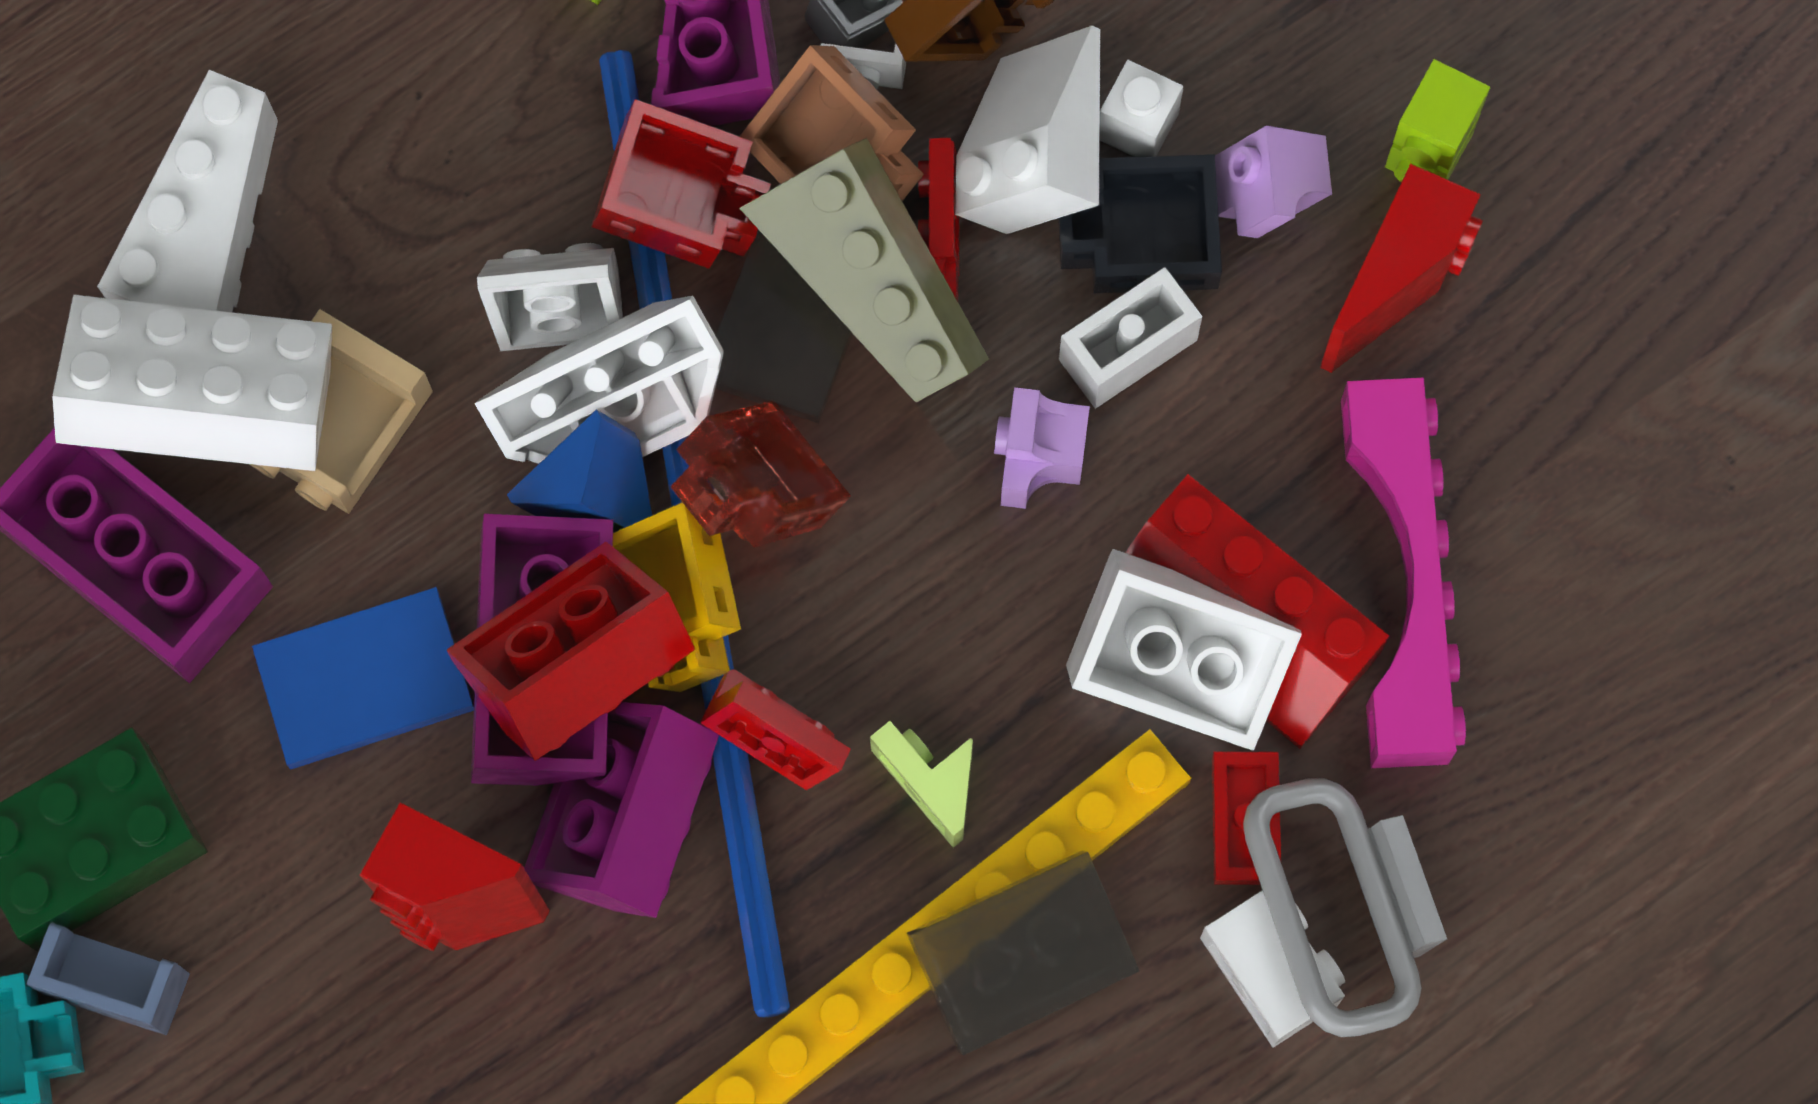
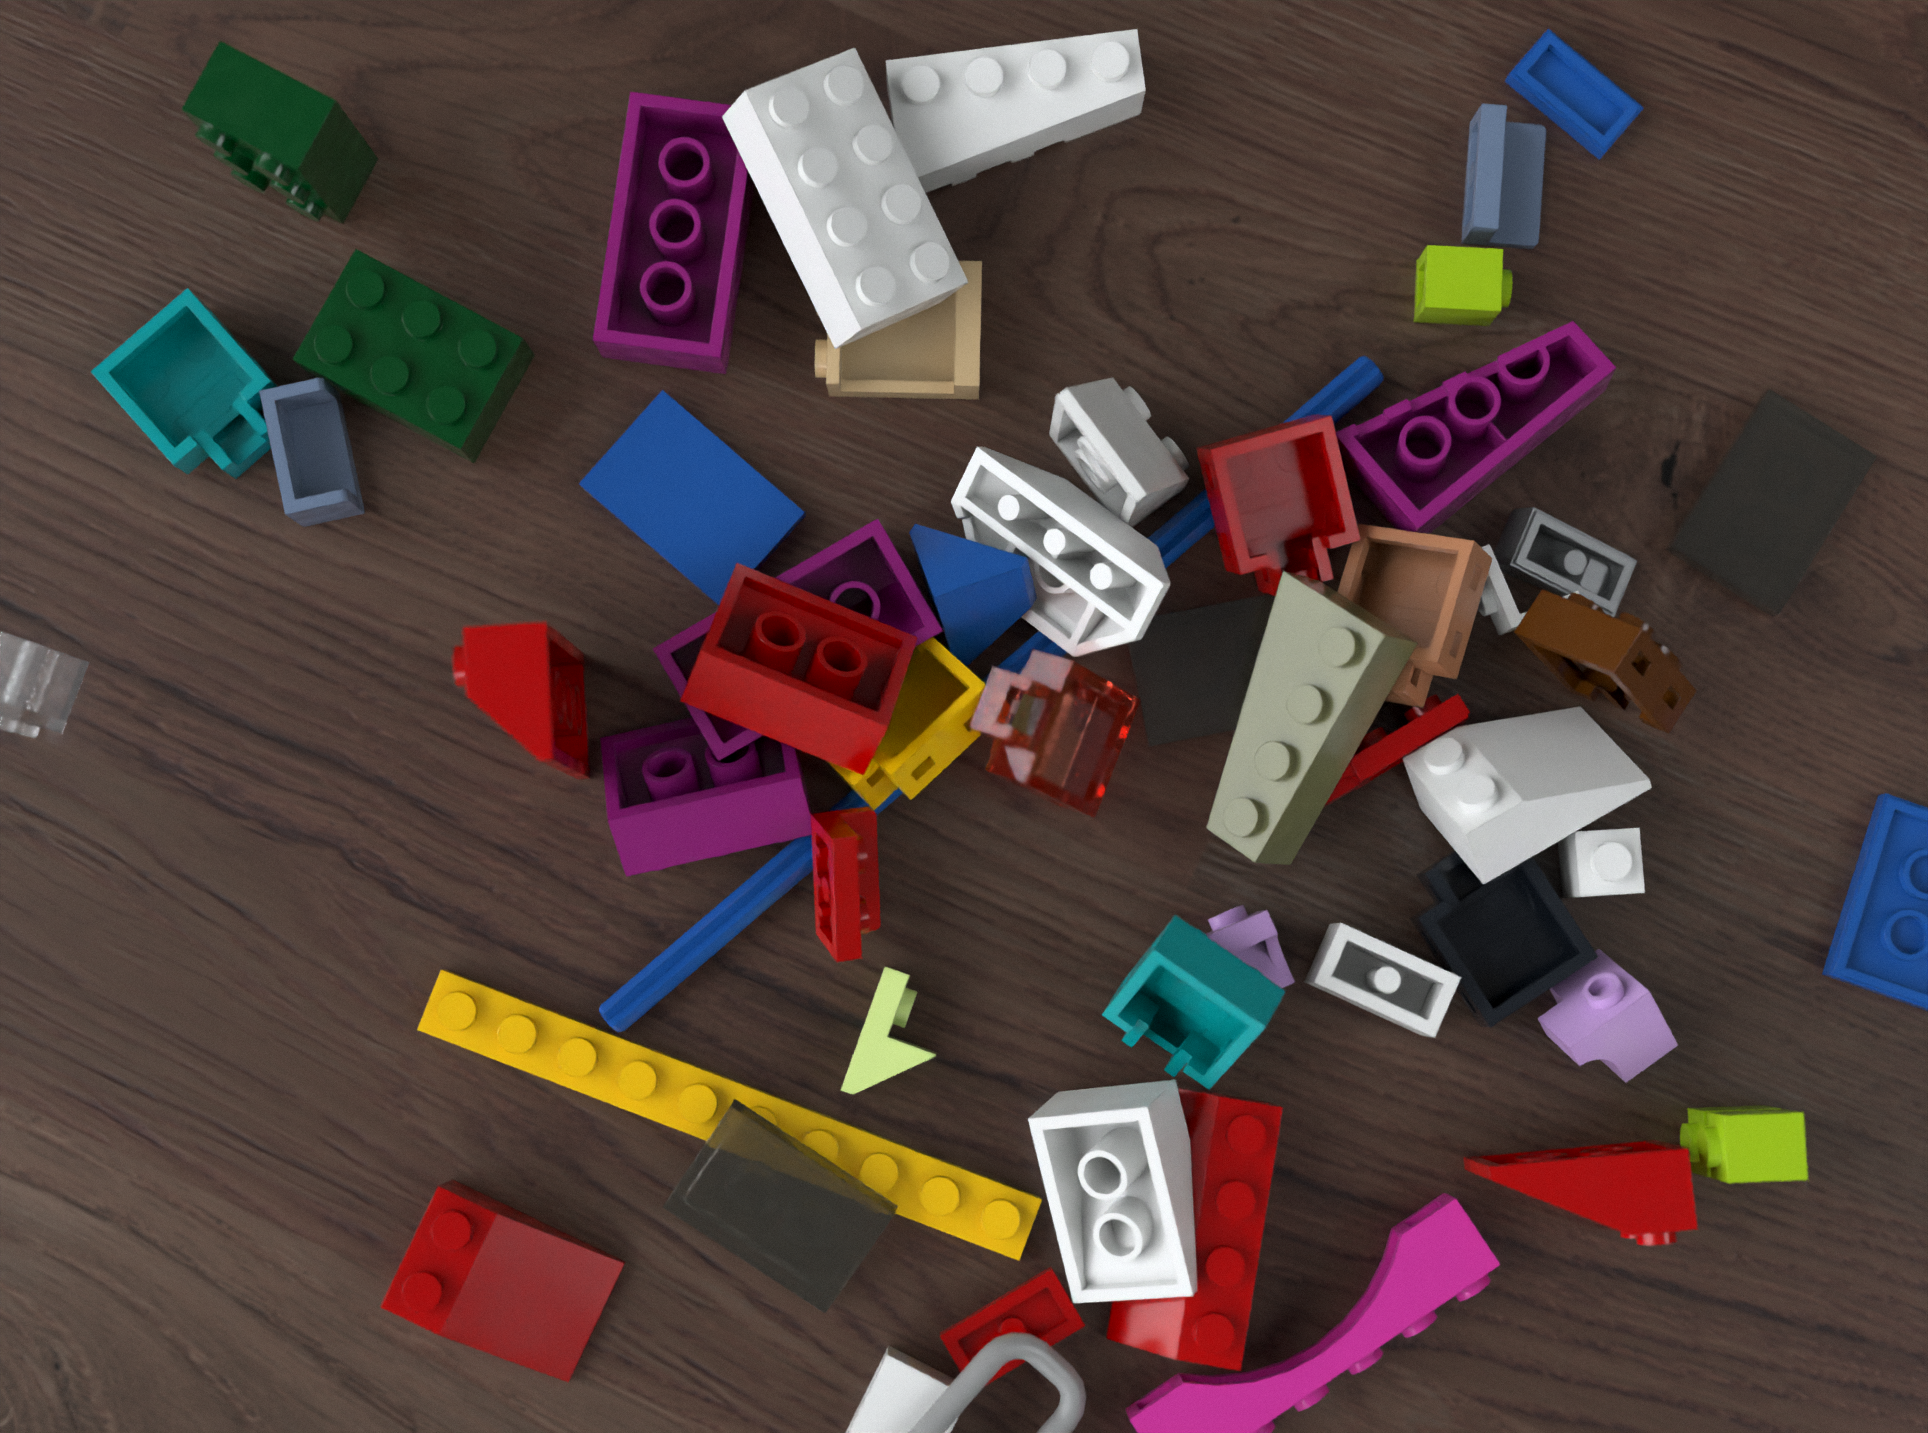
camera: 55 degrees right, 10 degrees up
(1056, 493) = (1193, 1002): none -> teal piece

